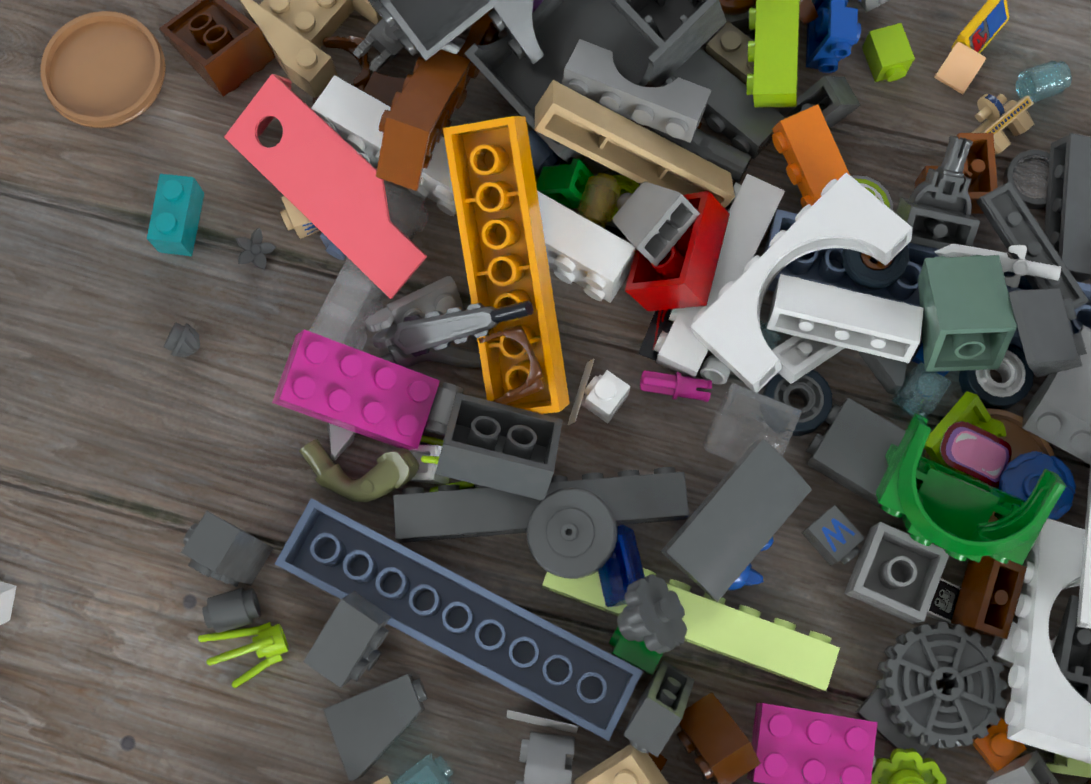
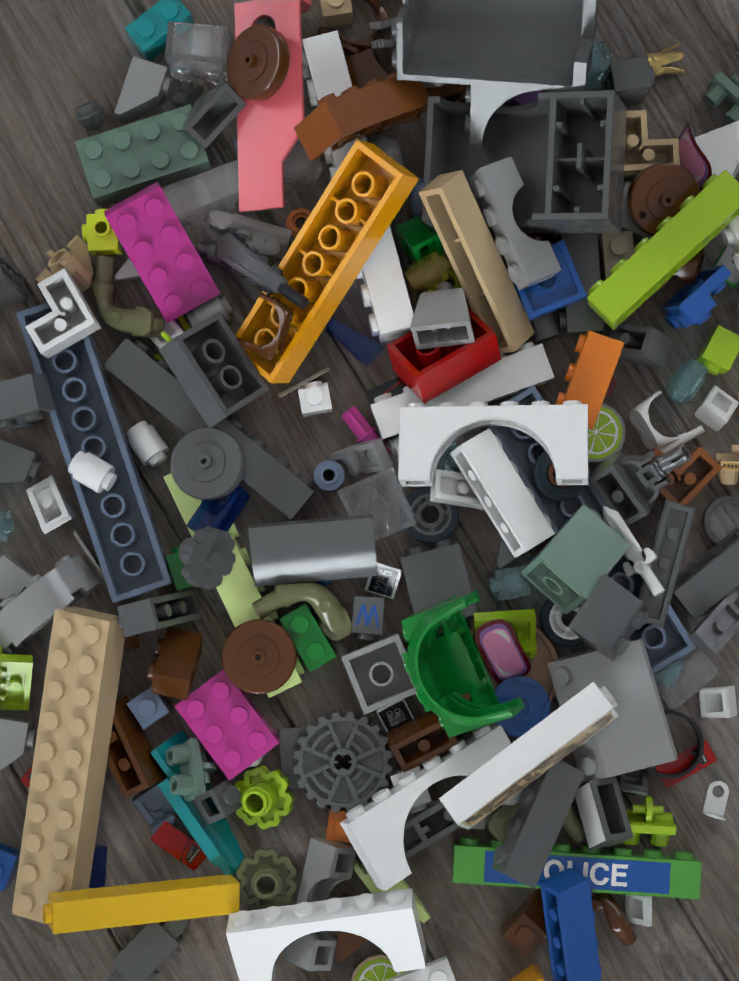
camera: 40 degrees right, 10 degrees up
(208, 277) = (143, 89): none -> light grey slope
(231, 201) = (198, 51): none -> clear brick
(259, 329) = (141, 154): none -> sand green brick
(285, 485) = (75, 262): none -> tan brick
(287, 428) = (99, 242): none -> neon yellow brick
(291, 236) = (213, 113): none -> dark grey slope
(292, 158) = (258, 63): none -> reddish brown wheel
(330, 519) = (69, 319): none -> white brick
(449, 256) = (293, 217): none -> orange plate
(463, 709) = (49, 504): none -> white slope
(478, 637) = (92, 471): none -> white brick
(498, 572) = (147, 444): none -> white brick
(594, 318) = (360, 346): none -> clear blue slope
(677, 457) = (336, 483): none -> sand blue brick
(695, 404) = (364, 457): none -> light grey slope
(716, 125) = (556, 291): none -> blue plate
(784, 660) = (259, 656): none -> reddish brown wheel
(803, 563) = (331, 613): none -> olive piece
(803, 604) = (308, 637): none -> green brick
(819, 497) = (386, 581): none -> slope
(888, 100) = (686, 381): none -> clear light blue brick
(903, 170) = (650, 437): none -> white helmet
(931, 102) = (716, 408): none -> white slope

